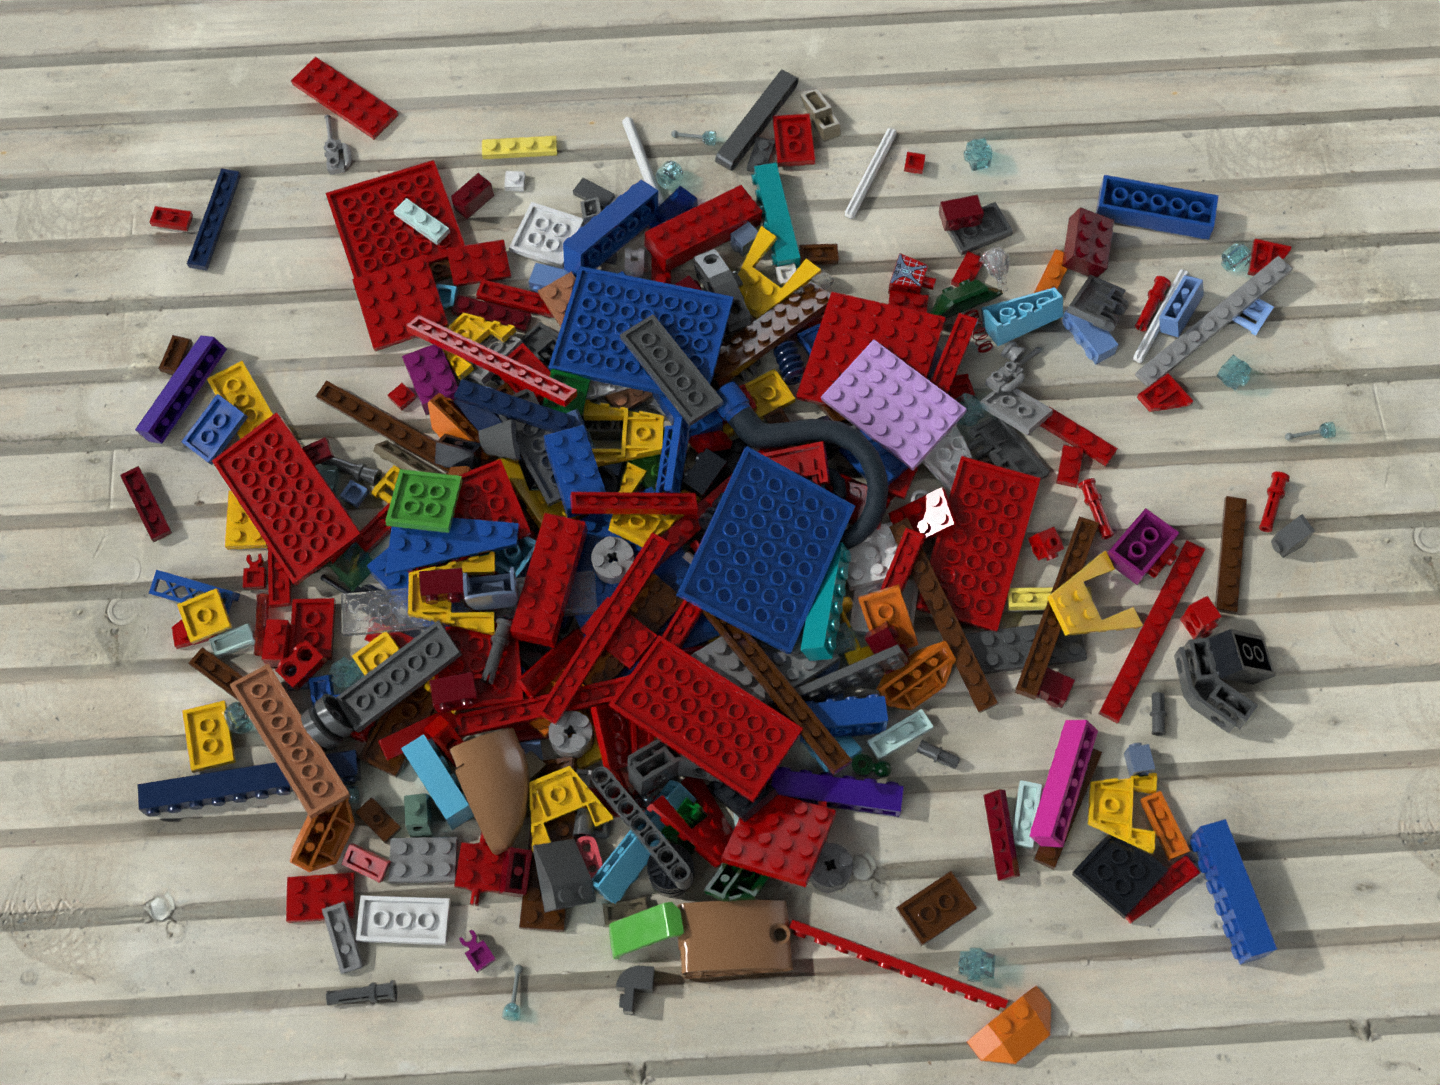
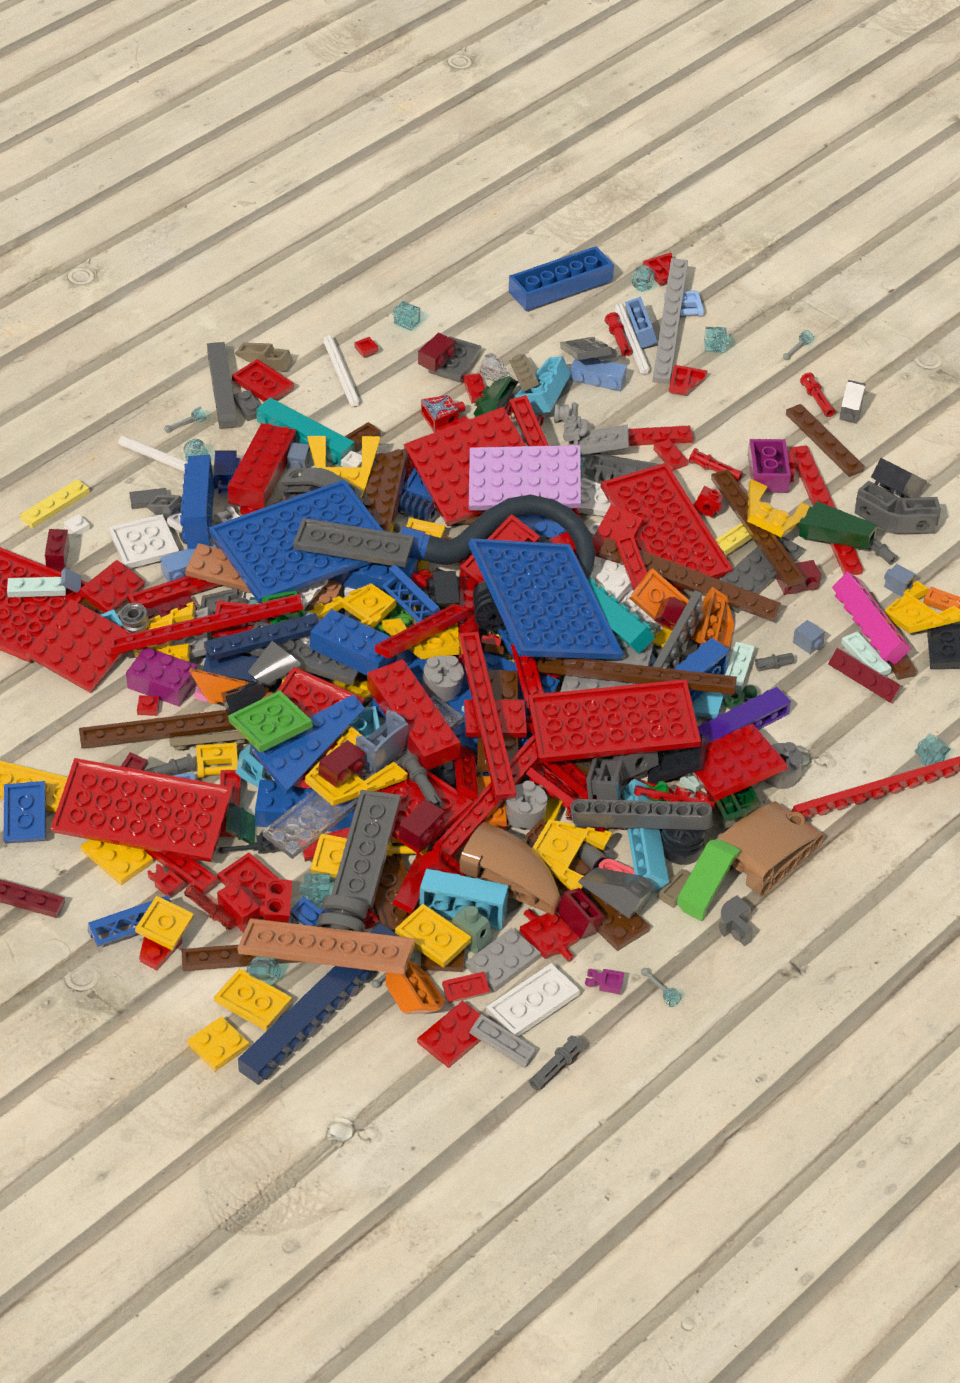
camera: 45 degrees left, 20 degrees down
(151, 753) = (218, 1043): none -> yellow plate
(232, 641) = (198, 932): light aqua tile -> none
(381, 796) = (434, 935): none -> yellow plate
(448, 234) = (70, 580): none -> sand blue tile
(462, 314) = (134, 617): none -> flat silver wheel
(936, 908) = (871, 742): reddish brown plate -> none
(992, 755) = (808, 637): none -> sand blue brick
(1017, 287) = (523, 372): none -> dark tan plate
(1053, 273) = (533, 353): orange plate -> none
(1088, 243) = (540, 321): dark red brick -> none
(1131, 660) = (836, 527): none -> dark green slope
(1201, 618) = (849, 478): red brick -> none

